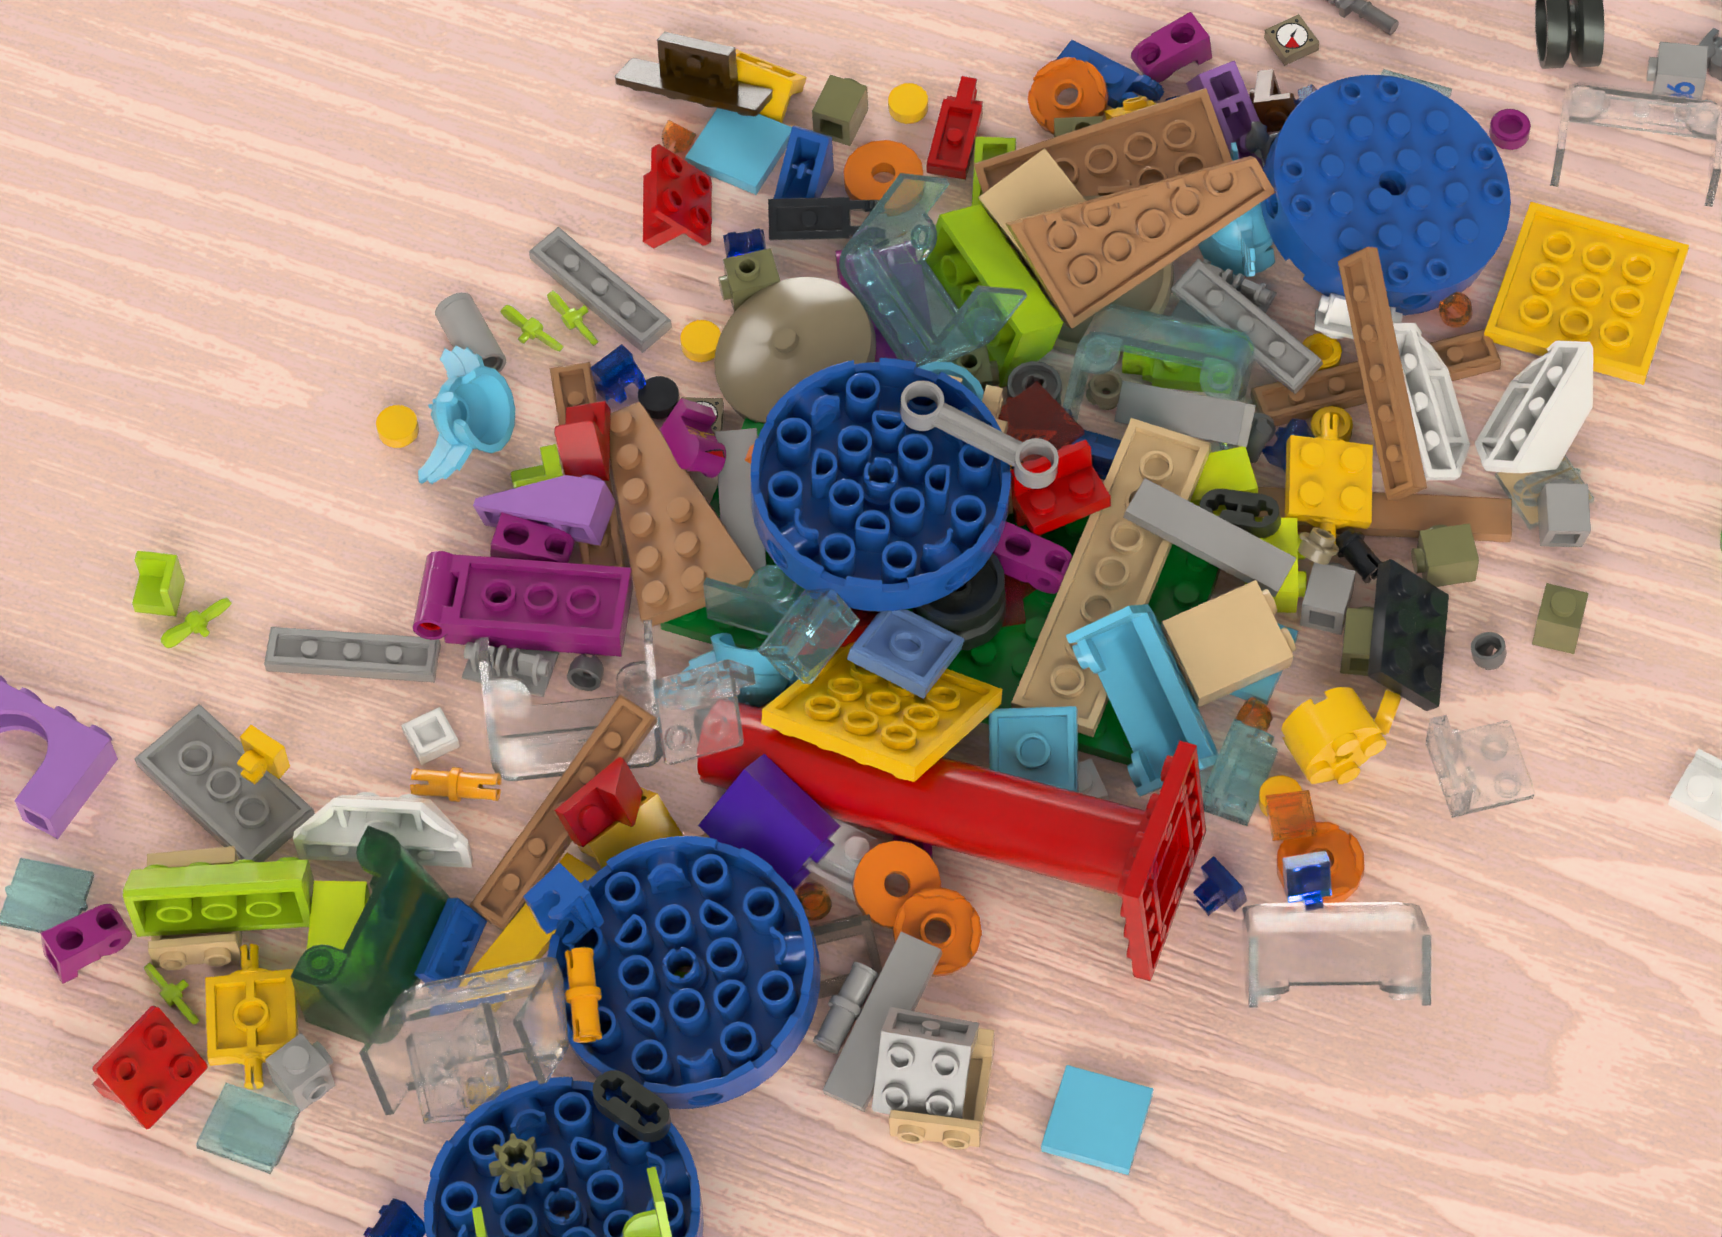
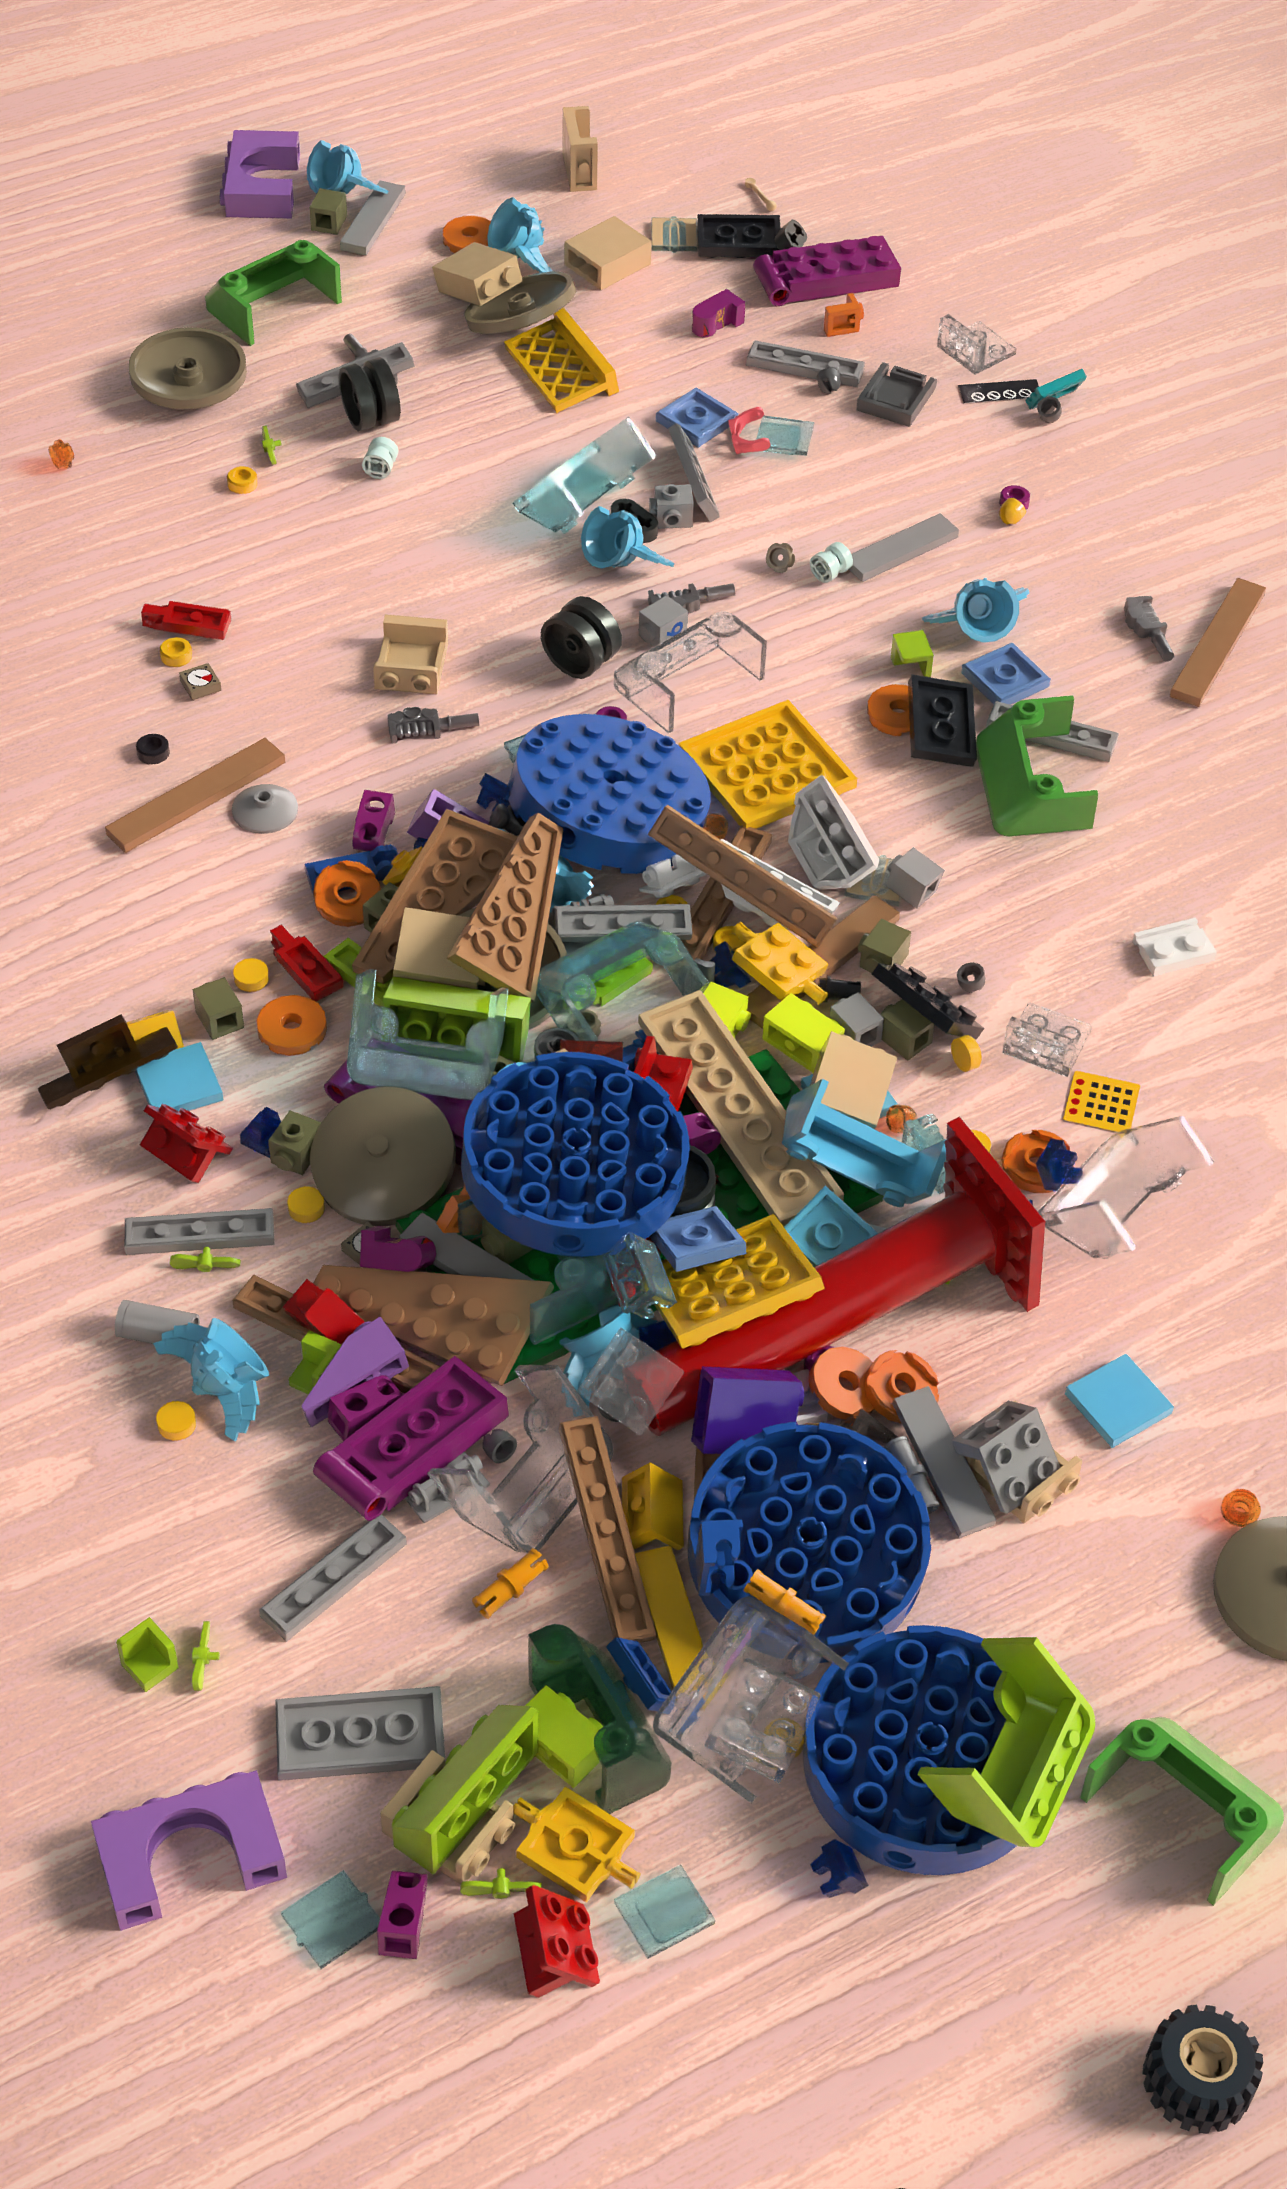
camera: 55 degrees left, 10 degrees down
(261, 755) = (371, 1680): yellow tile -> none
(301, 1071) = (658, 1839): light grey brick -> none
(414, 821) = (499, 1653): white wedge -> none
(430, 736) = (450, 1574): white tile -> none
(516, 1152) = (885, 1734): olive gear -> none
(531, 328) = (186, 1290): lime piece -> none
(600, 802) = (628, 1493): red slope -> none
(615, 373) = (283, 1262): clear blue tile -> none
(625, 1113) = (896, 1636): pearl dark grey beam -> none
(659, 396) = (322, 1253): black tile -> none
(675, 132) = (131, 1104): clear orange hinge -> none
(806, 165) = (243, 1056): blue slope -> none
(814, 218) = (288, 1075): black hinge -> none
(979, 434) = (608, 1067): light grey piece -> none
(1186, 413) = (661, 987): light grey tile -> none
(1209, 537) = (766, 1037): light grey tile -> none
(1242, 508) = (763, 1015): pearl dark grey beam -> none
(1269, 103) = (480, 803): reddish brown bracket -> none
(1290, 815) = (1000, 1144): clear orange tile -> none
(1291, 39) = (429, 768): tile -> none
(1318, 546) = (825, 994): dark tan plate -> none
(1332, 736) = (965, 1084): yellow brick -> none
(1454, 868) = (1101, 1102): none -> yellow sticker
(1560, 618) = (985, 928): olive brick -> none

